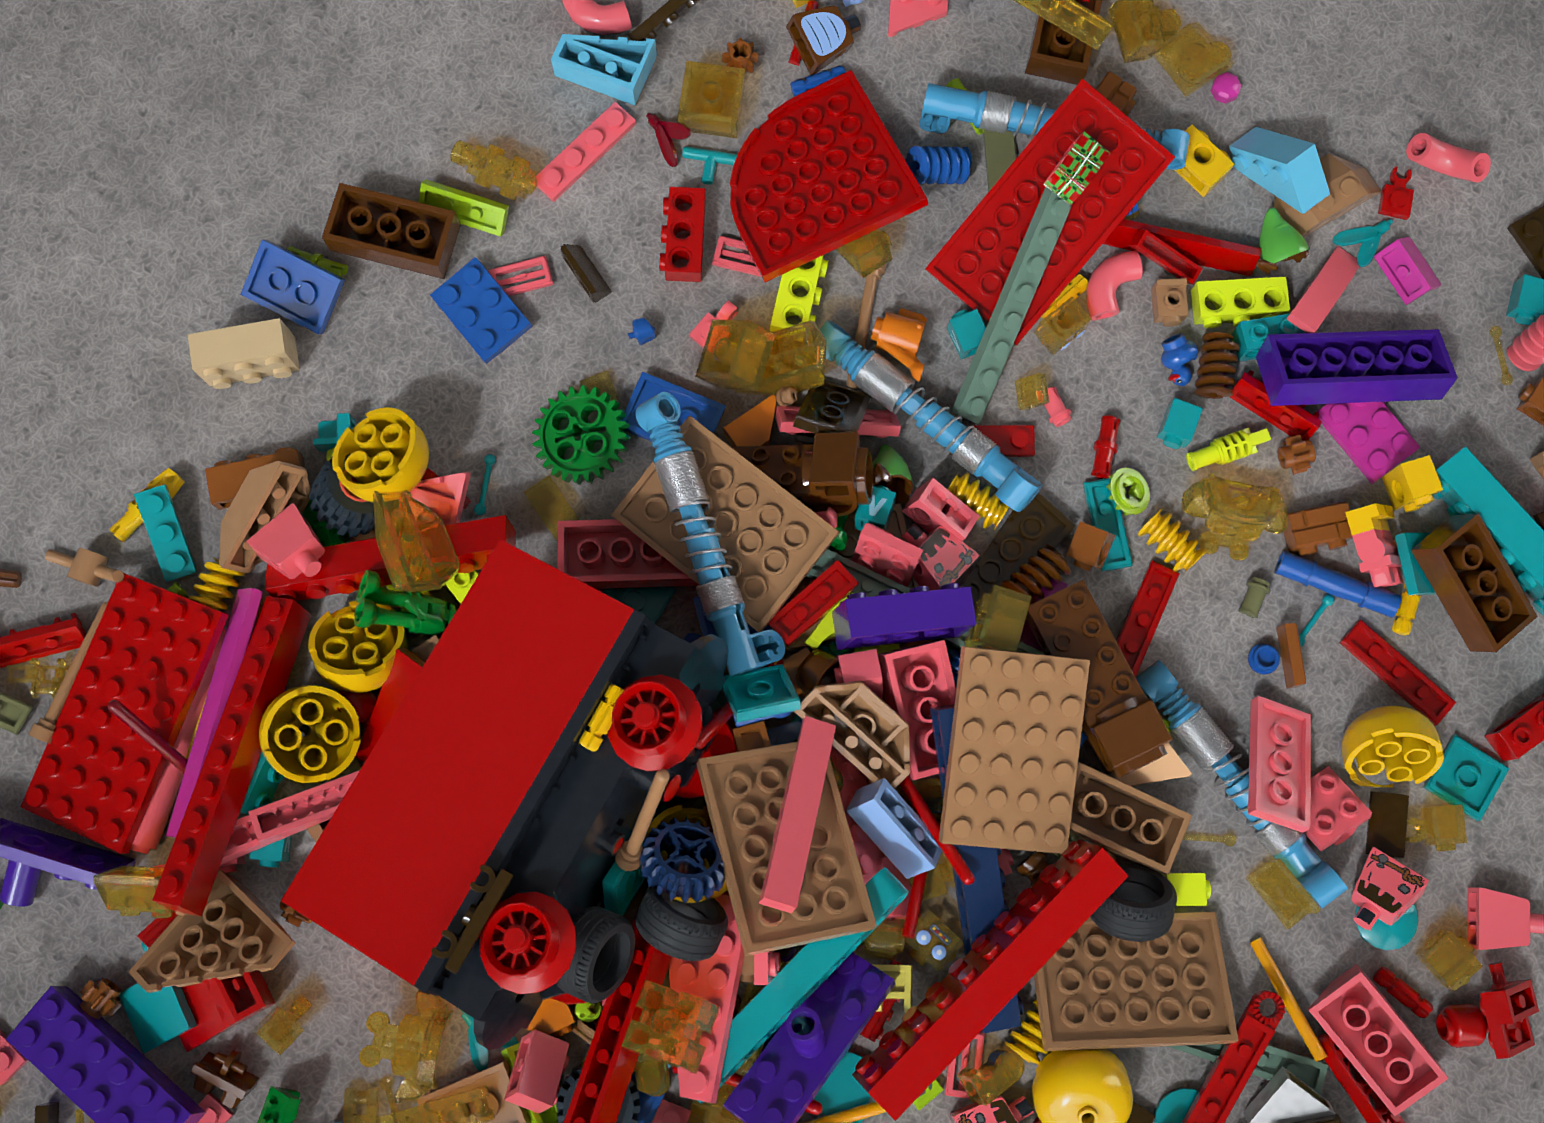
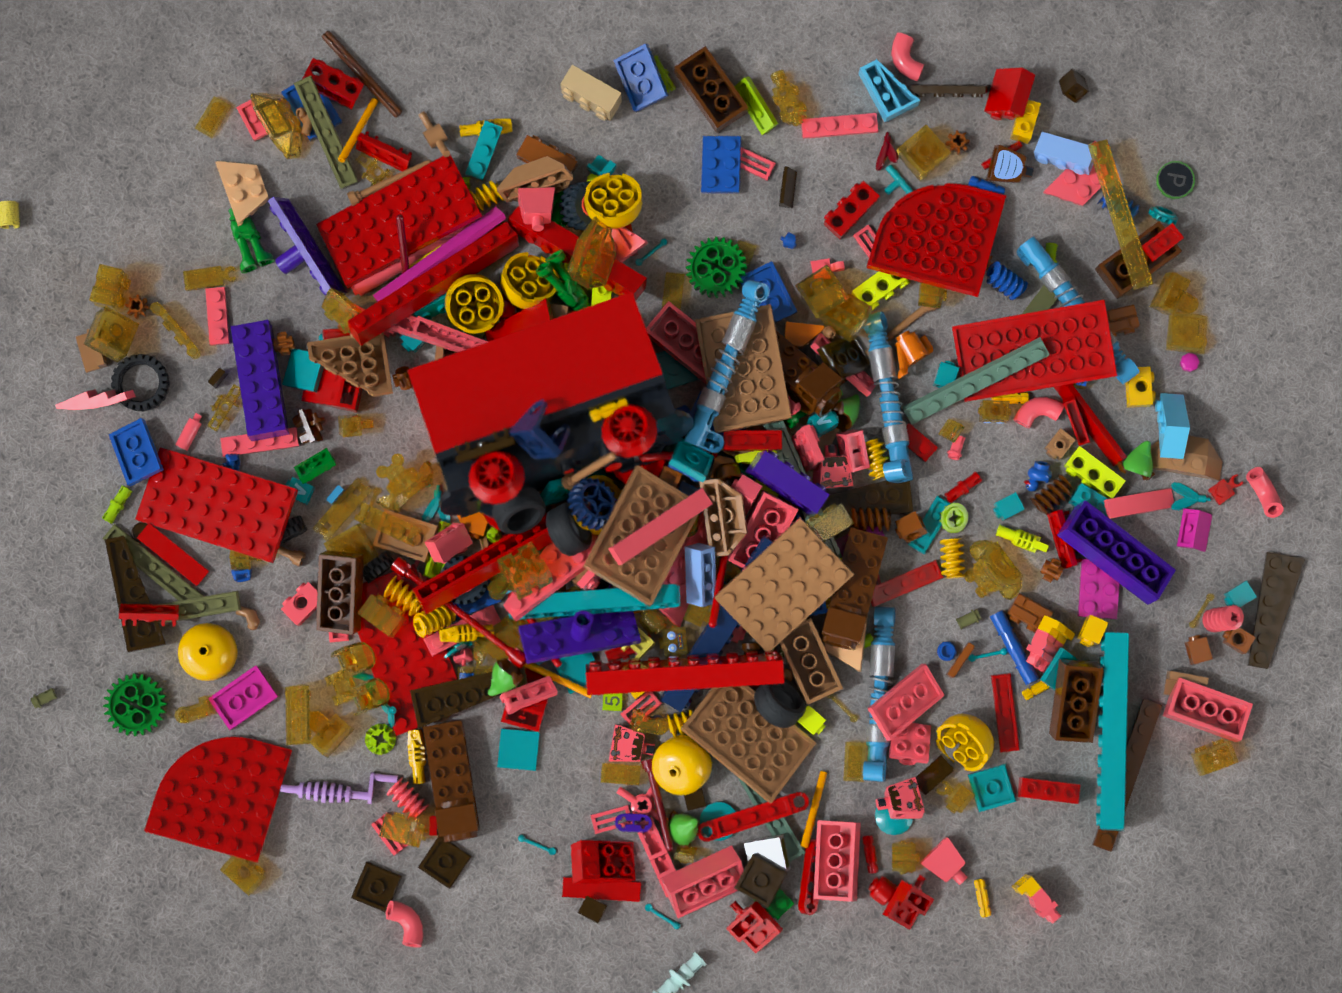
camera: 45 degrees right, 5 degrees up
(534, 847) = (534, 439): none -> dark blue hose
(914, 905) = (680, 617): red piece -> none
(1076, 168) = (1060, 341): piece -> none

